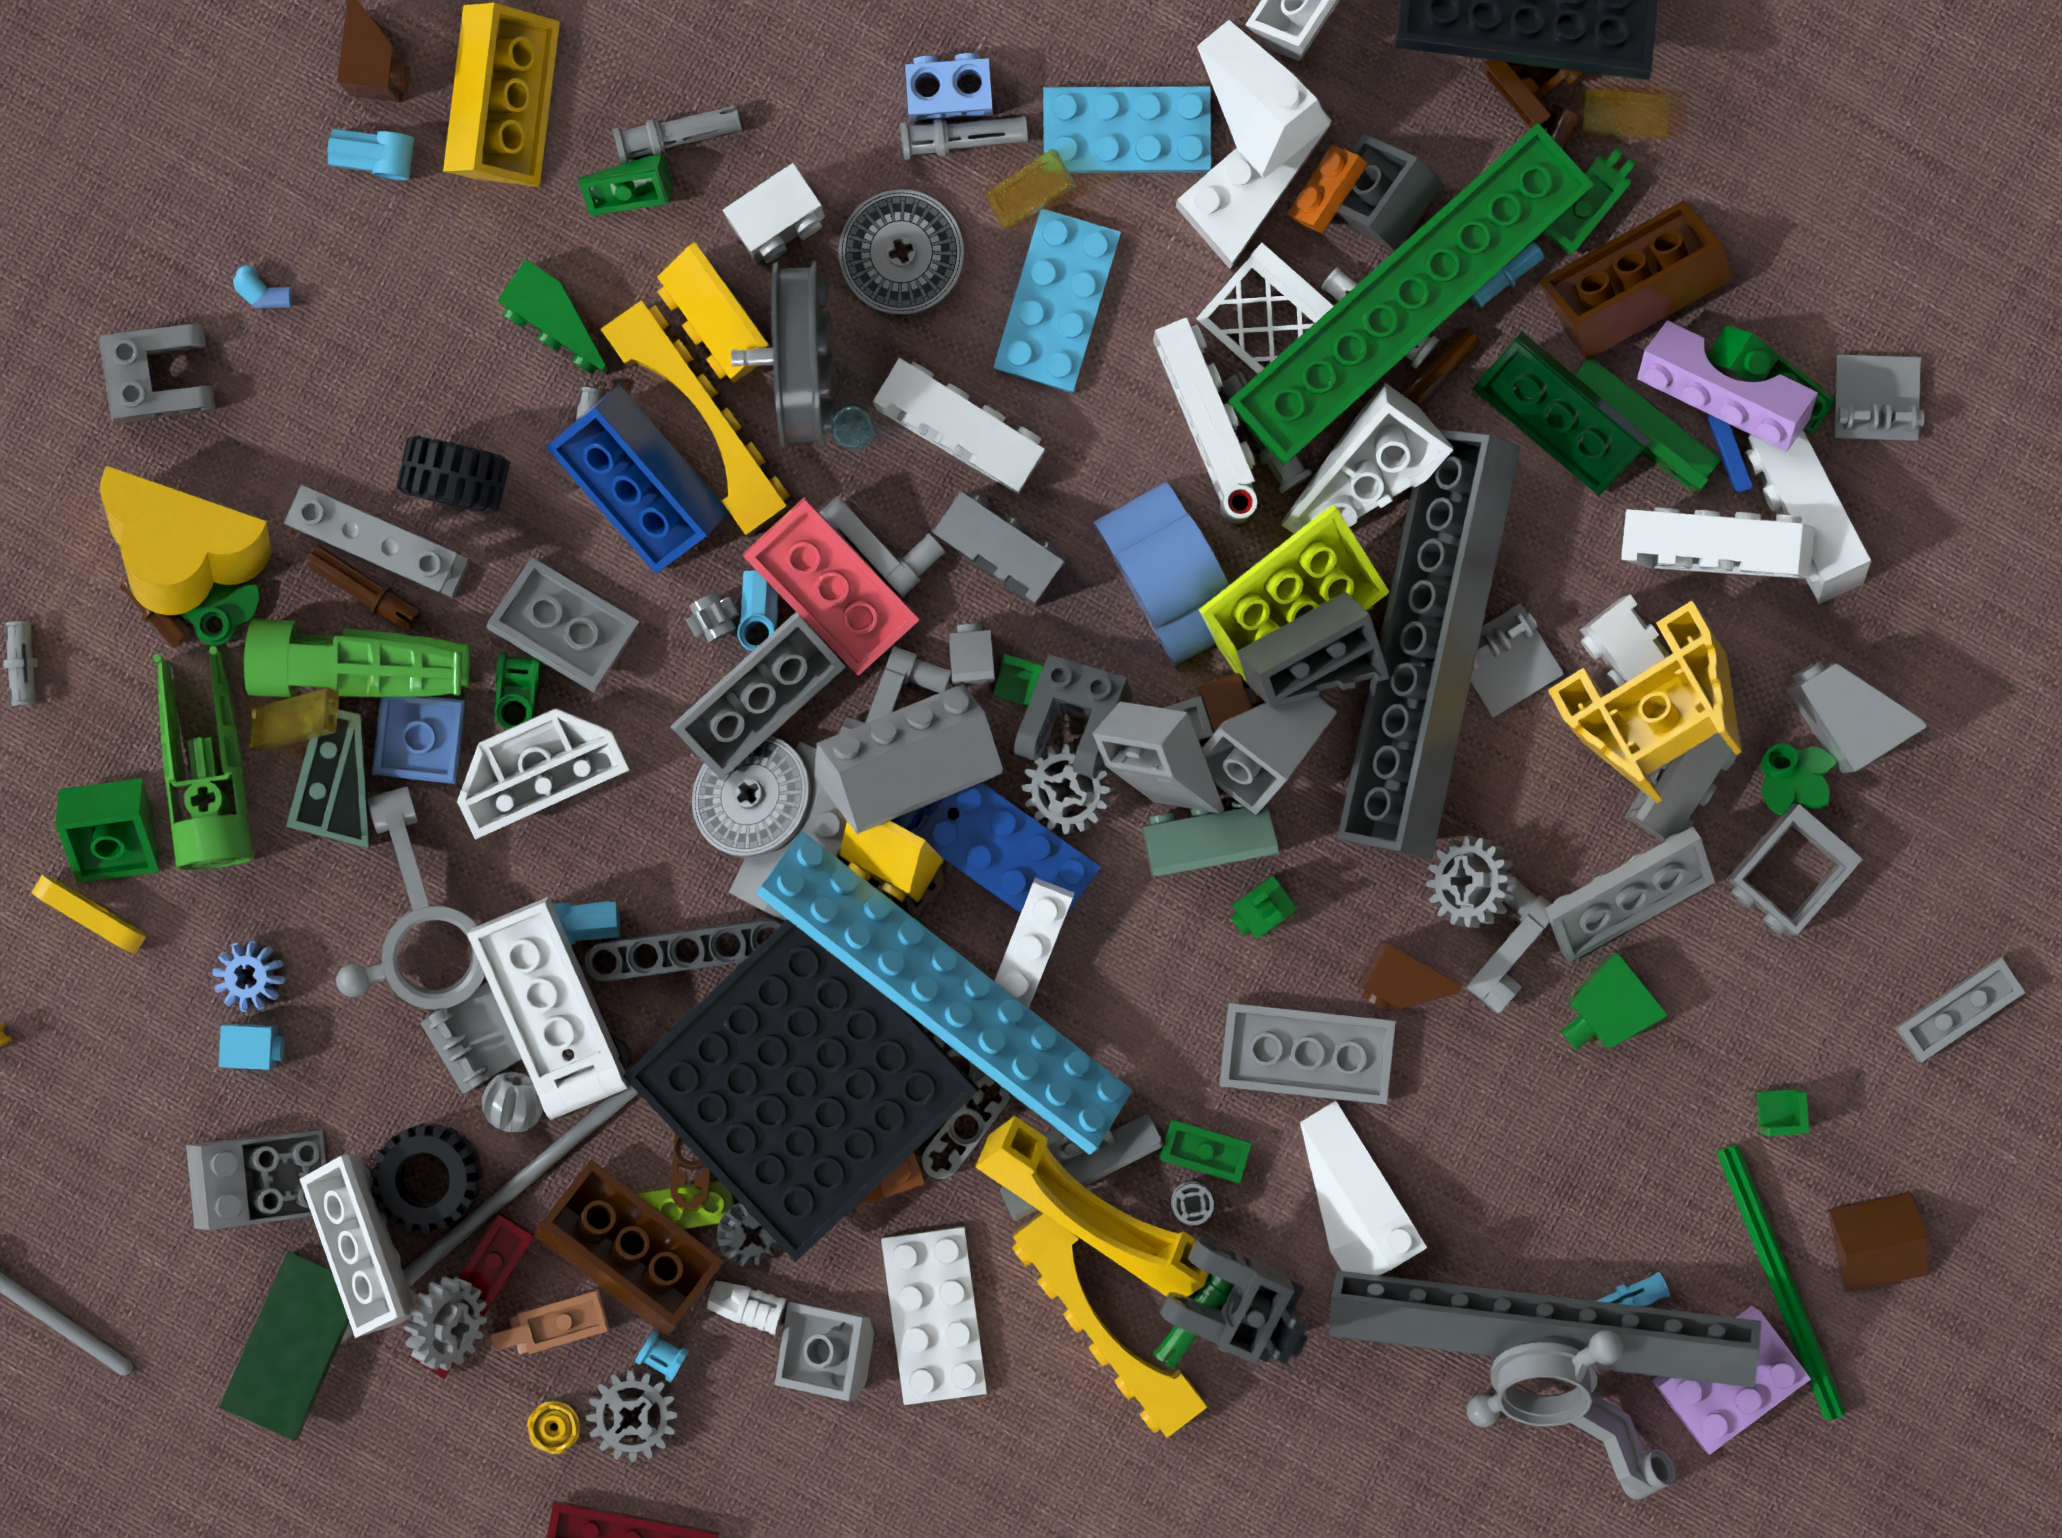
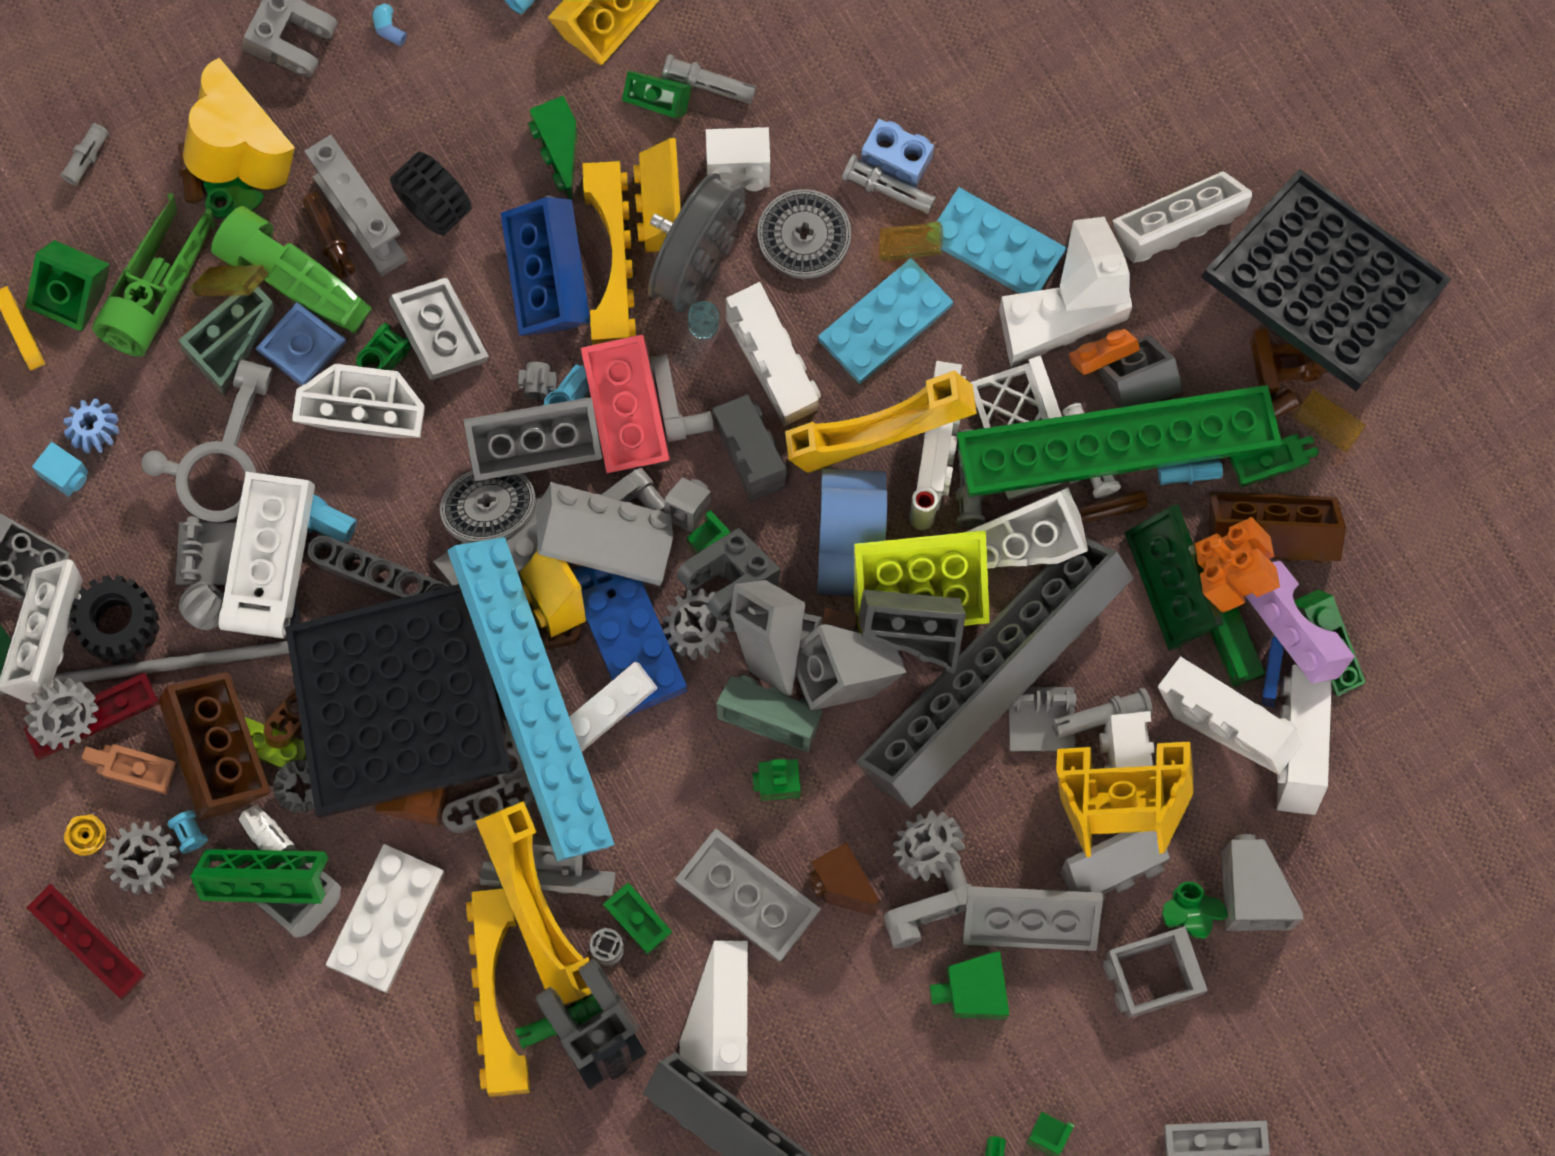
camera: 30 degrees right, 15 degrees down
(782, 1370) = (256, 882): none -> green fence
(1185, 399) = (937, 404): none -> yellow arch
(1584, 602) = (1100, 715): none -> light grey pin
(1628, 365) = (1237, 565): none -> orange brick
(1878, 398) = (1395, 697): light grey hinge -> none

